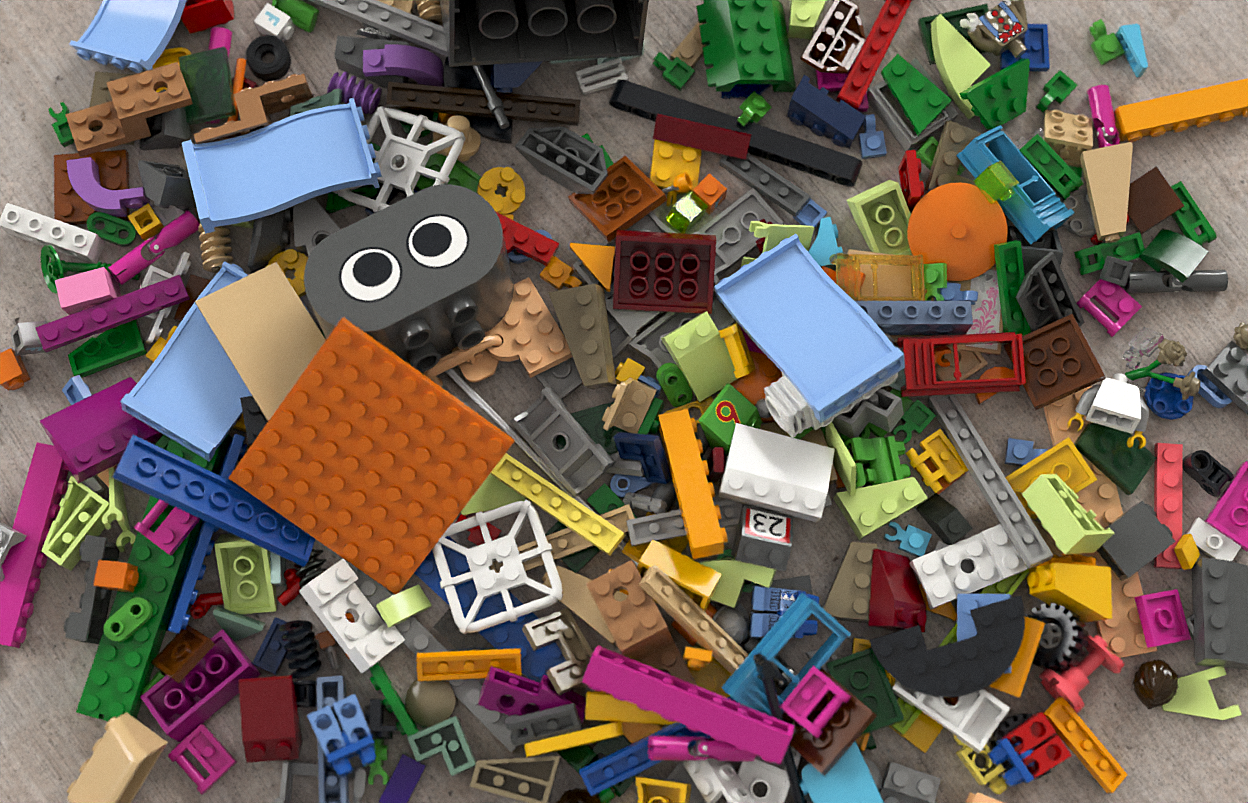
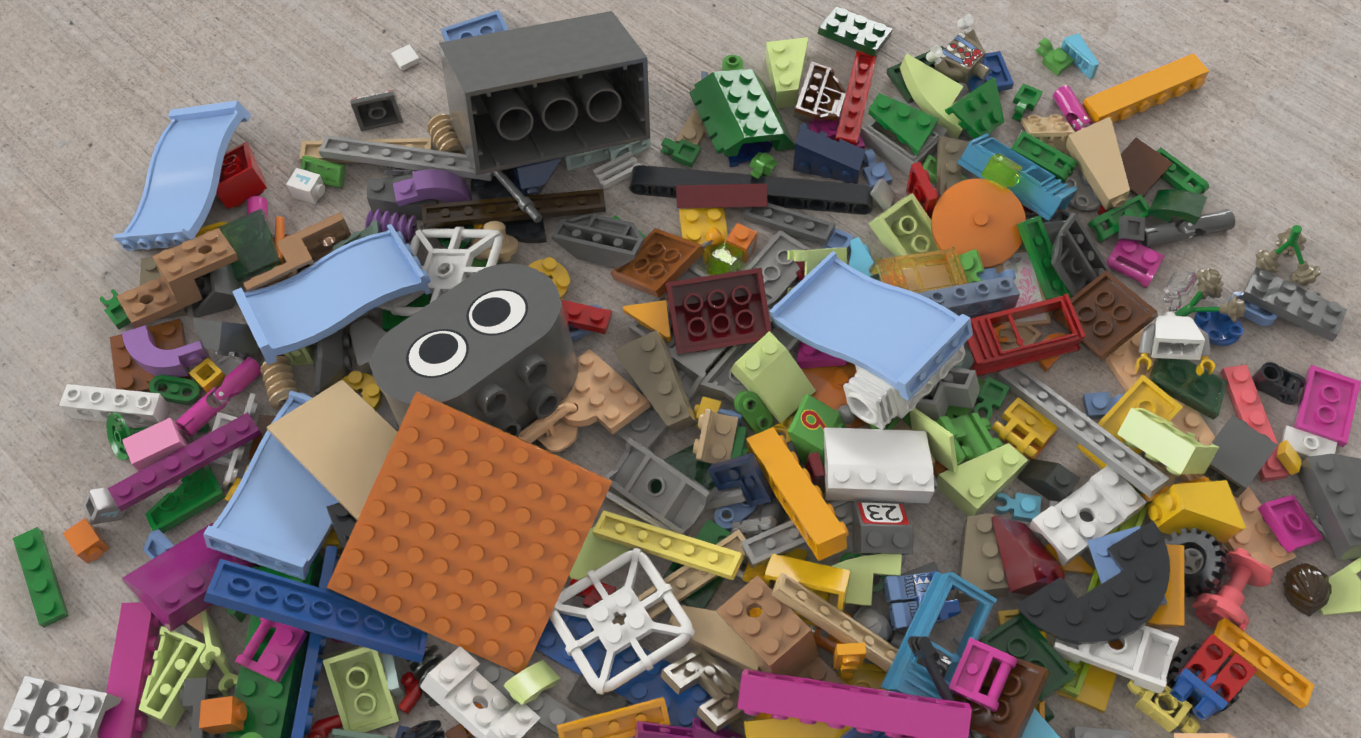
camera: 10 degrees left, 15 degrees down
(268, 71) = (300, 204): black tyre -> none
(559, 275) = (614, 338): light orange plate -> none
(738, 350) = (802, 356): yellow plate -> none
(871, 170) = (883, 194): none -> light grey tile

